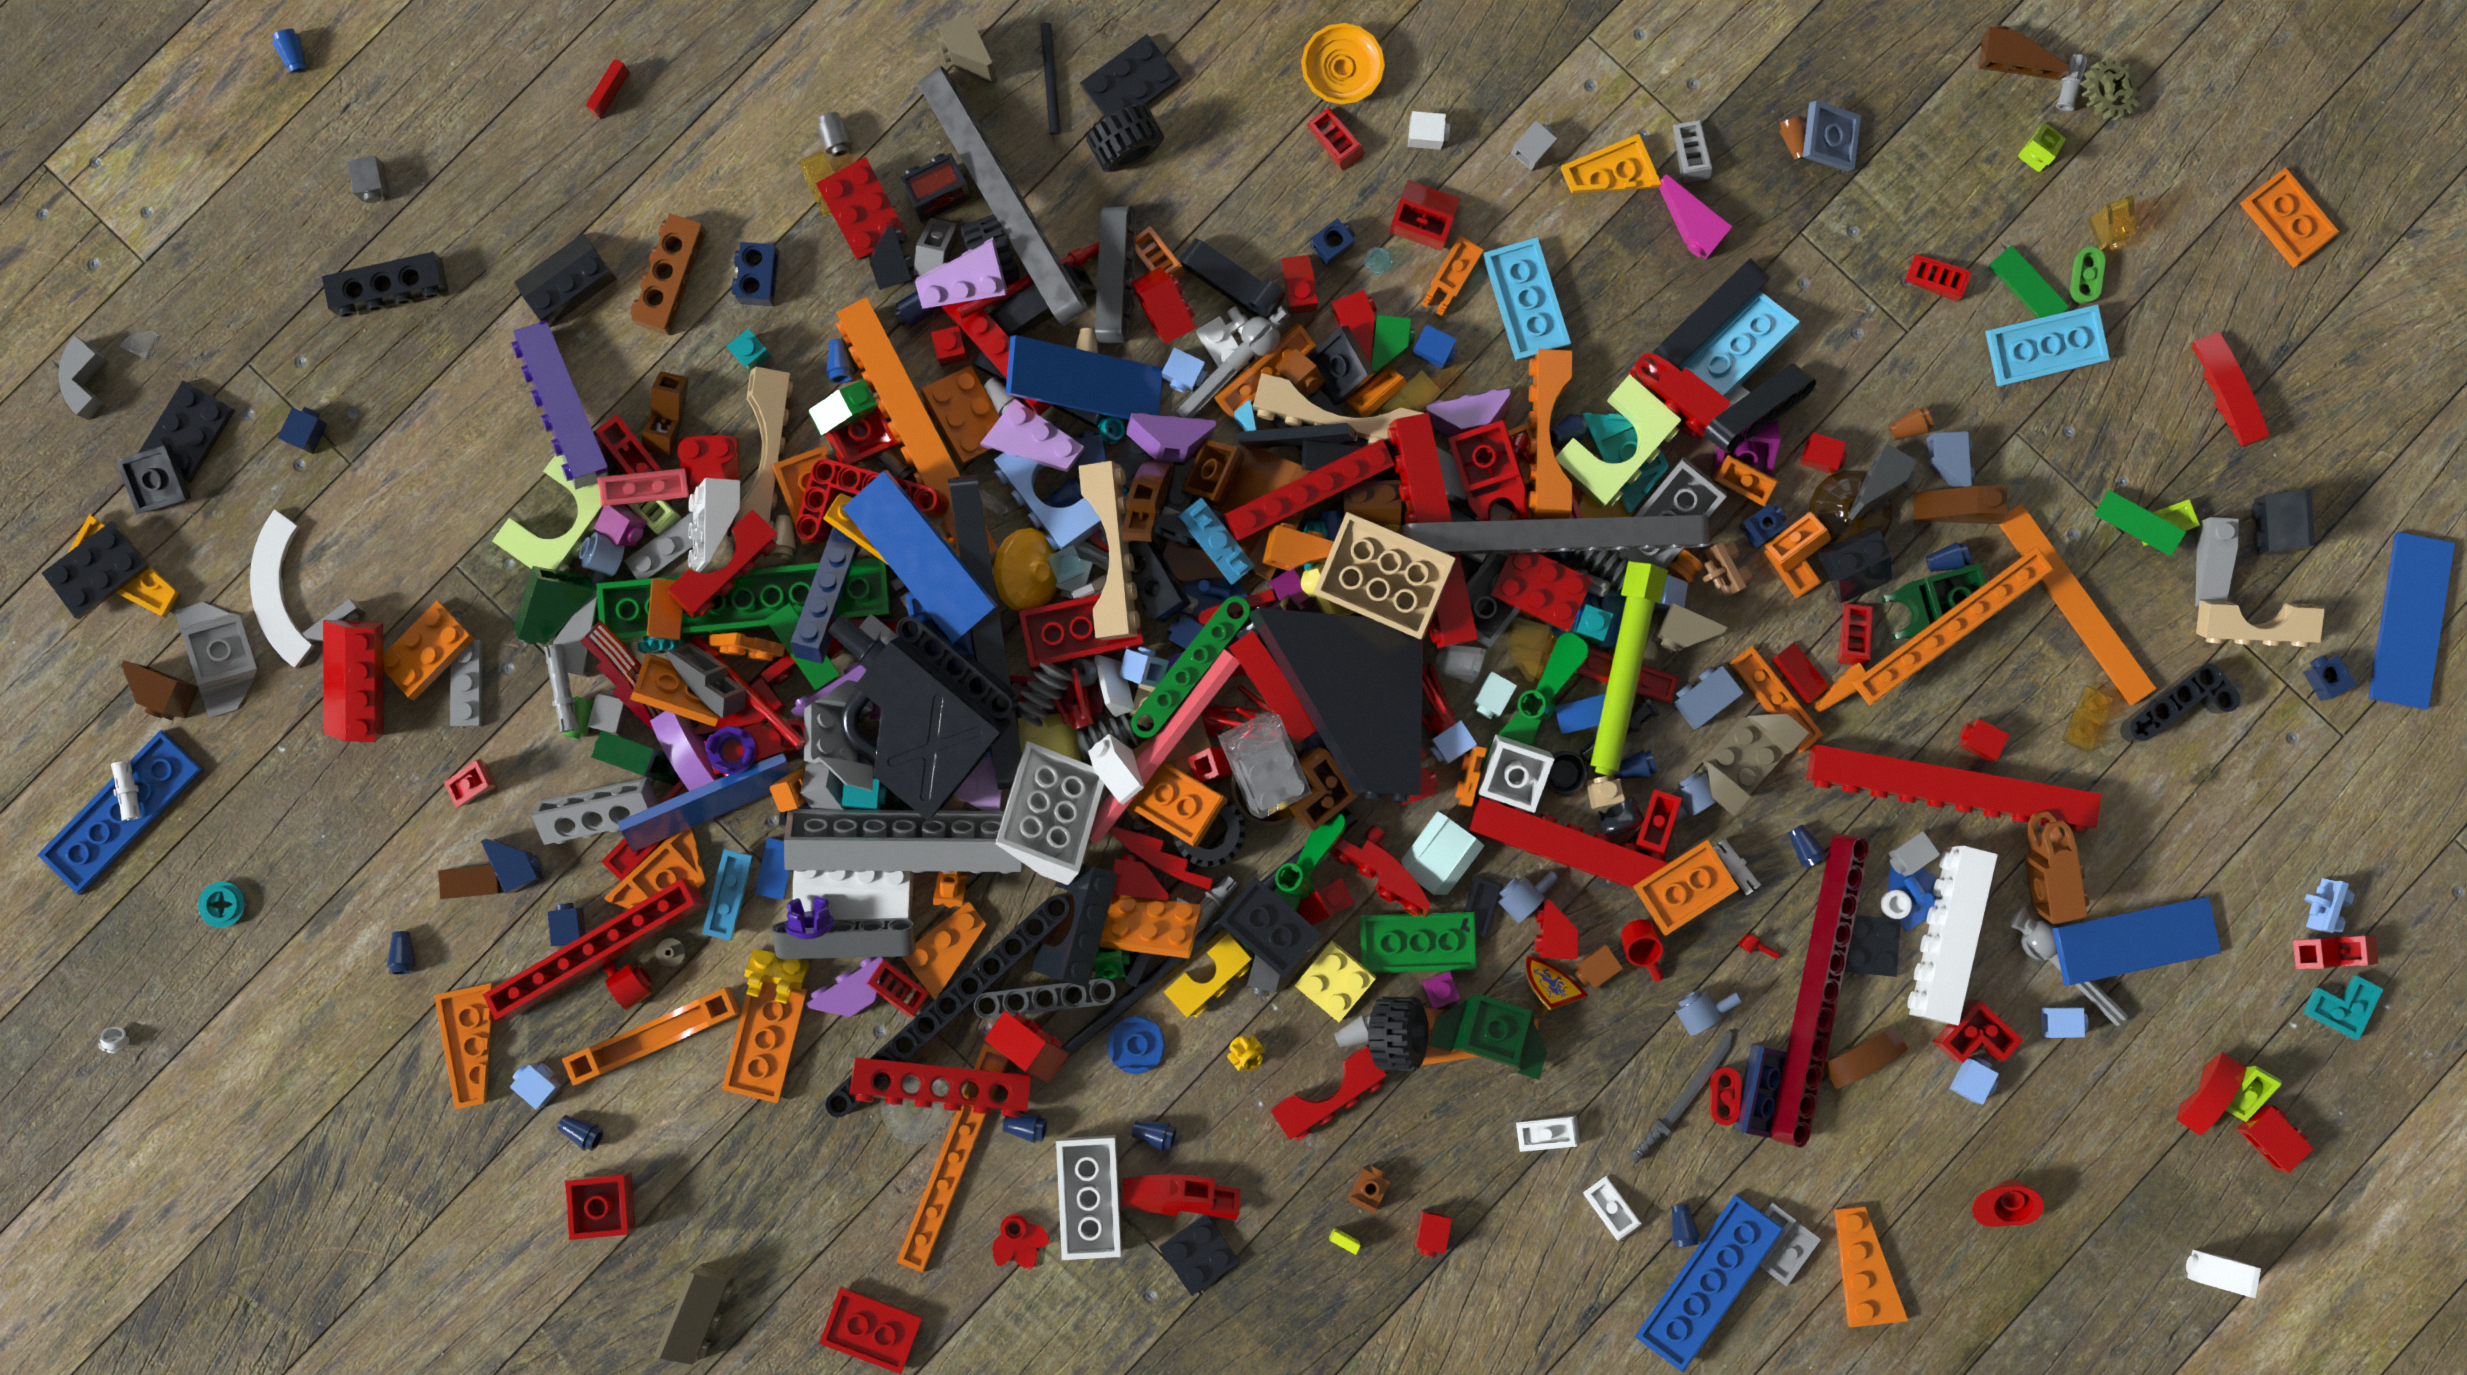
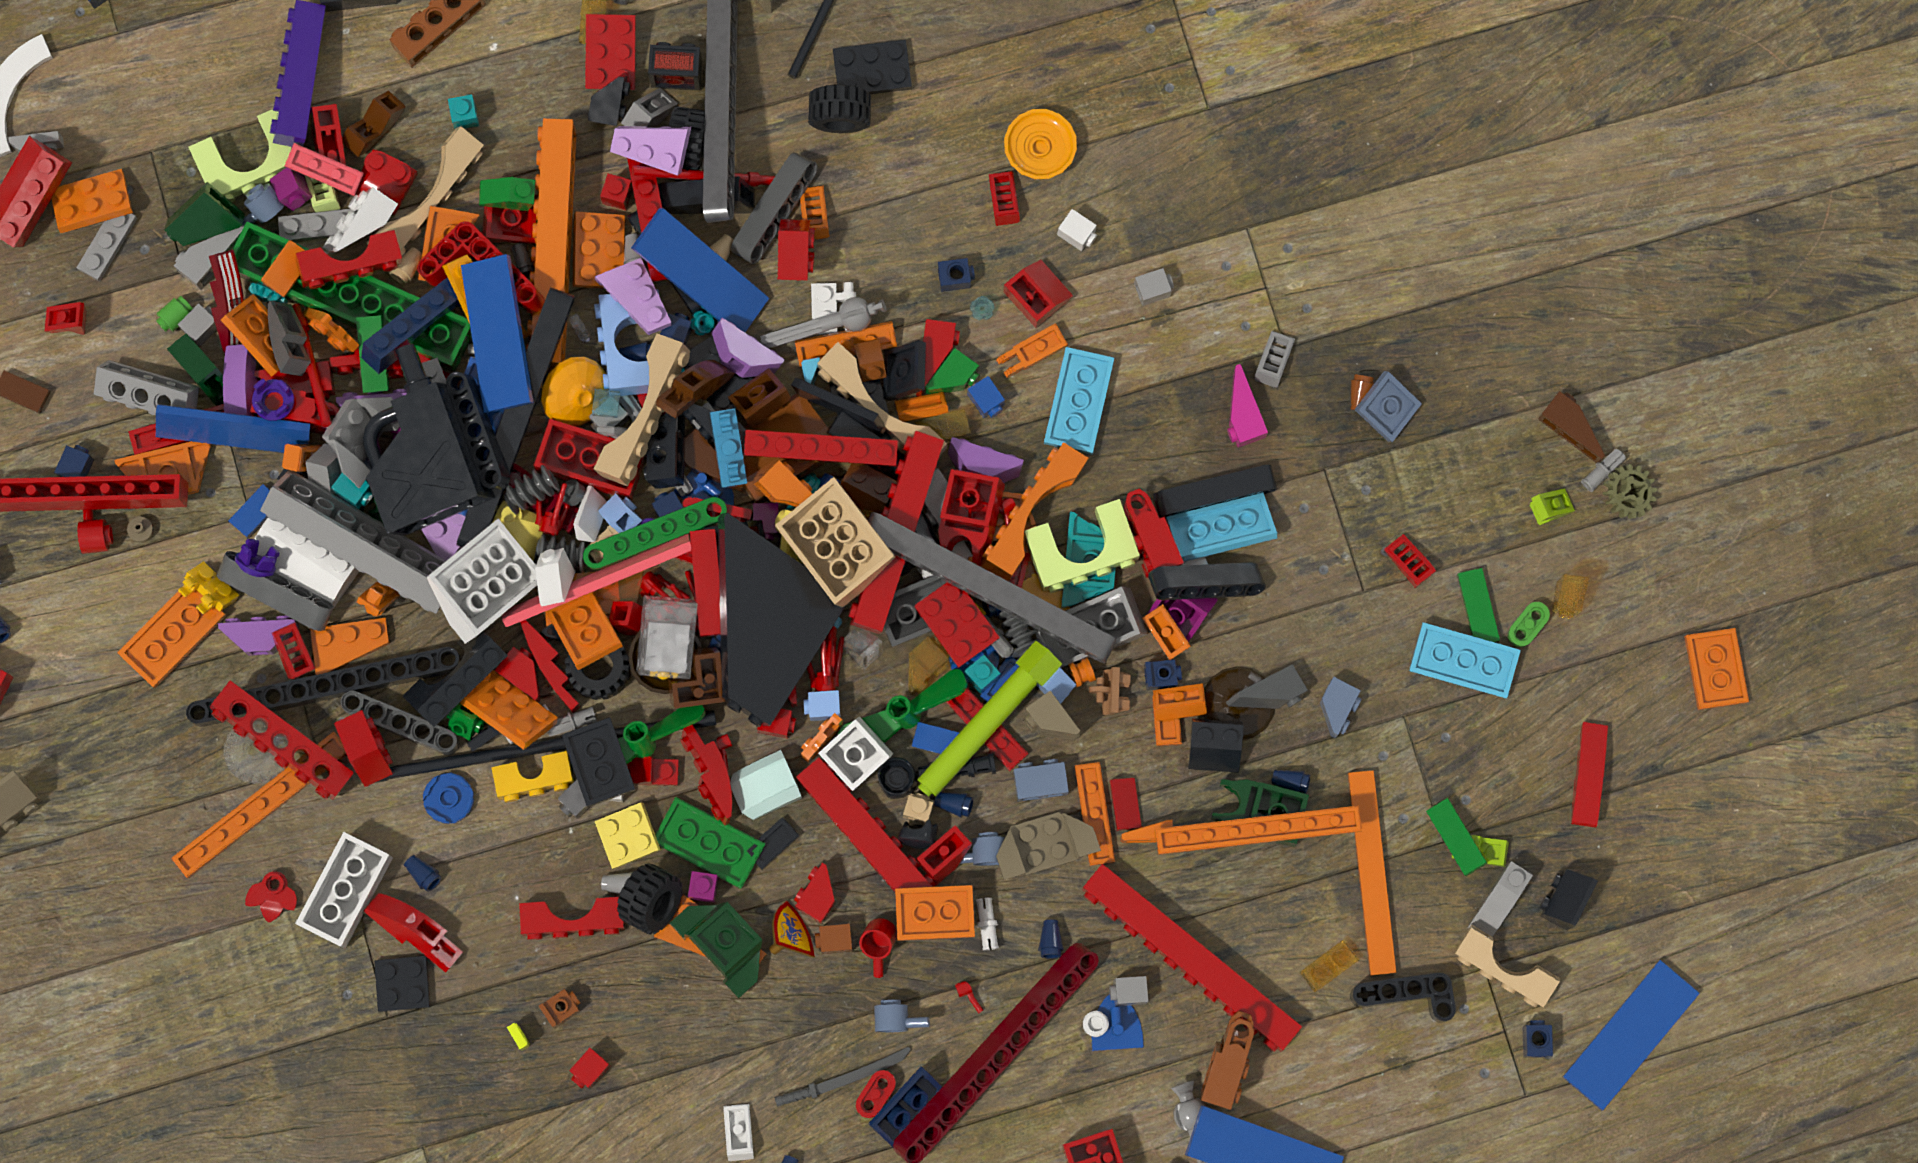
camera: 30 degrees right, 5 degrees down
(513, 865) = (61, 398): dark blue slope -> none
(561, 688) = (177, 277): light grey pin -> none
(651, 1036) = (91, 584): orange arch -> none
(727, 895) = (207, 509): dark azure plate -> none
(764, 273) = (509, 60): dark blue brick -> none
(839, 363) = (525, 160): blue cone -> none
(870, 1330) = (121, 898): red plate -> none
(911, 311) = (601, 150): dark blue brick -> none
(1027, 1127) = (330, 813): dark blue cone -> none
(1184, 371) = (783, 309): light blue brick -> none
(1231, 280) = (859, 260): black beam -> none
(1246, 1053) = (527, 850): yellow gear -> none
(1299, 284) = (910, 292): red slope -> none
(1493, 695) = (876, 687): light aqua brick -> none
(1522, 897) = (807, 852): sand blue piece -> none
(1548, 1133) = (723, 1046): white slope -> none
(1570, 427) = (1054, 516): dark blue cone -> none
(1612, 169) = (1204, 338): light orange wing -> none
(1823, 453) = (1240, 646): red brick -> none
(1853, 657) = (1167, 810): red slope -> none
(1866, 1057) = (1001, 1124): reddish brown brick -> none
(1874, 946) = (1057, 1045): black plate -> none
(1912, 424) = (1323, 662): dark orange cone -> none
(1952, 934) = (1127, 1063): white brick -> none
(1962, 505) = (1324, 745): reddish brown slope -> none
(1982, 739) = (1235, 934): red brick -> none

